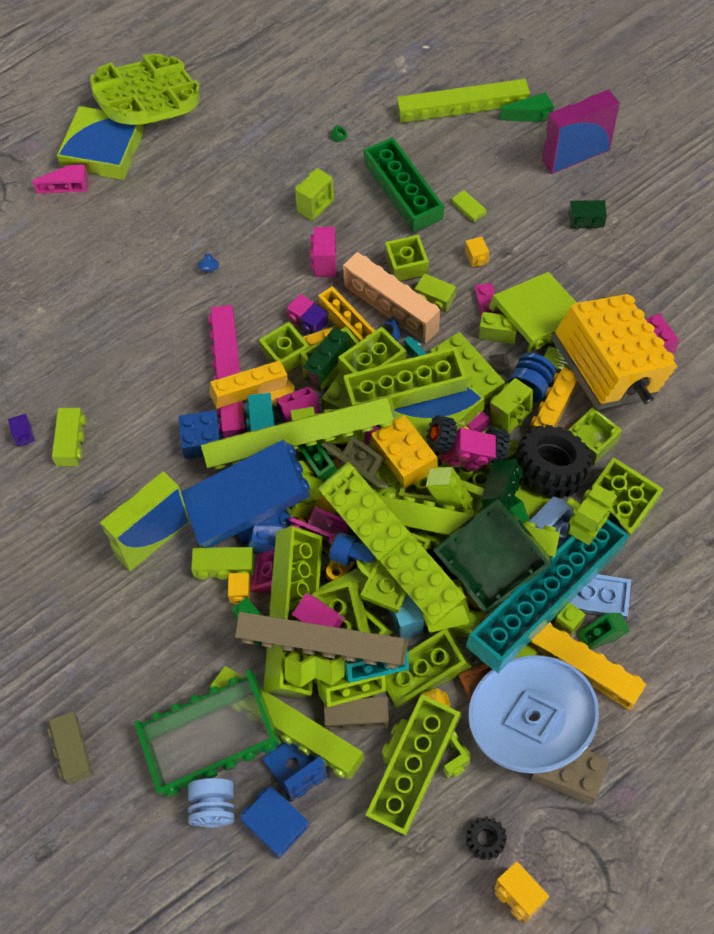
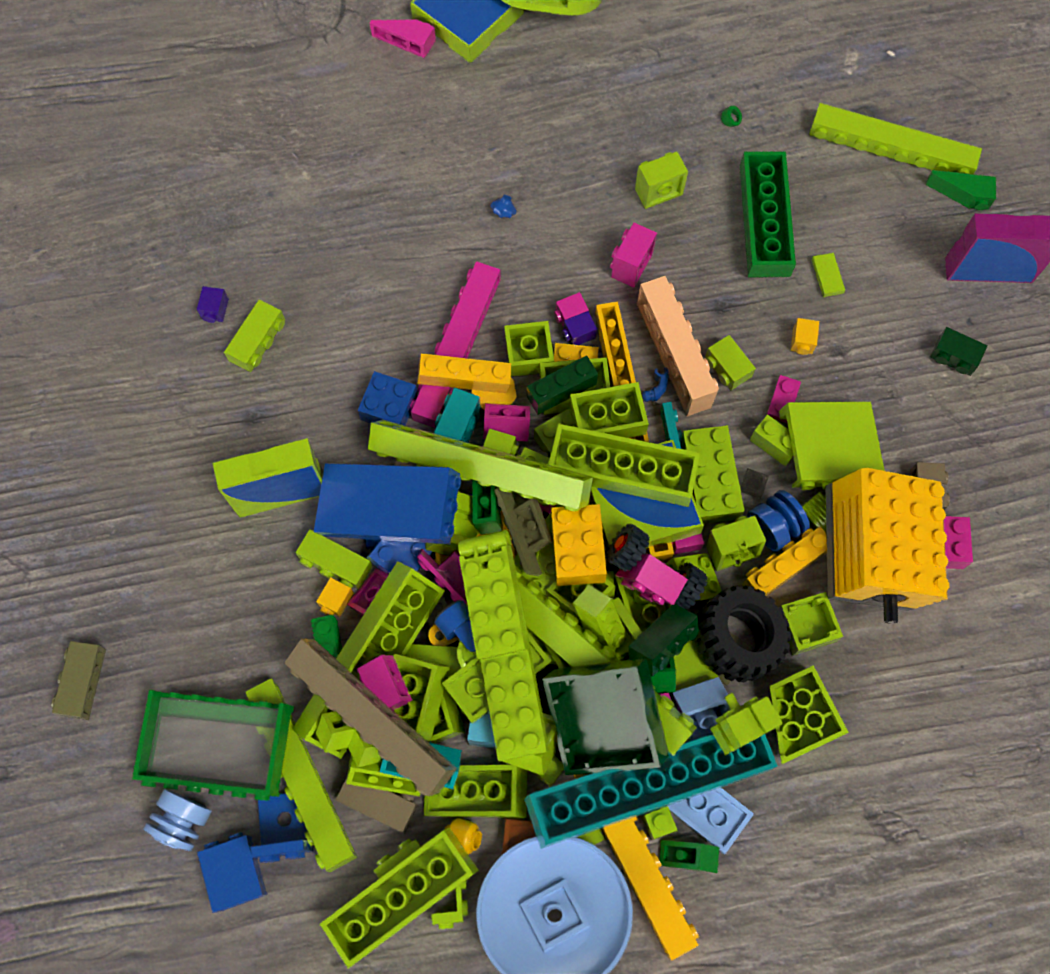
camera: 25 degrees right, 10 degrees up
(406, 257) = (720, 306): lime brick -> none

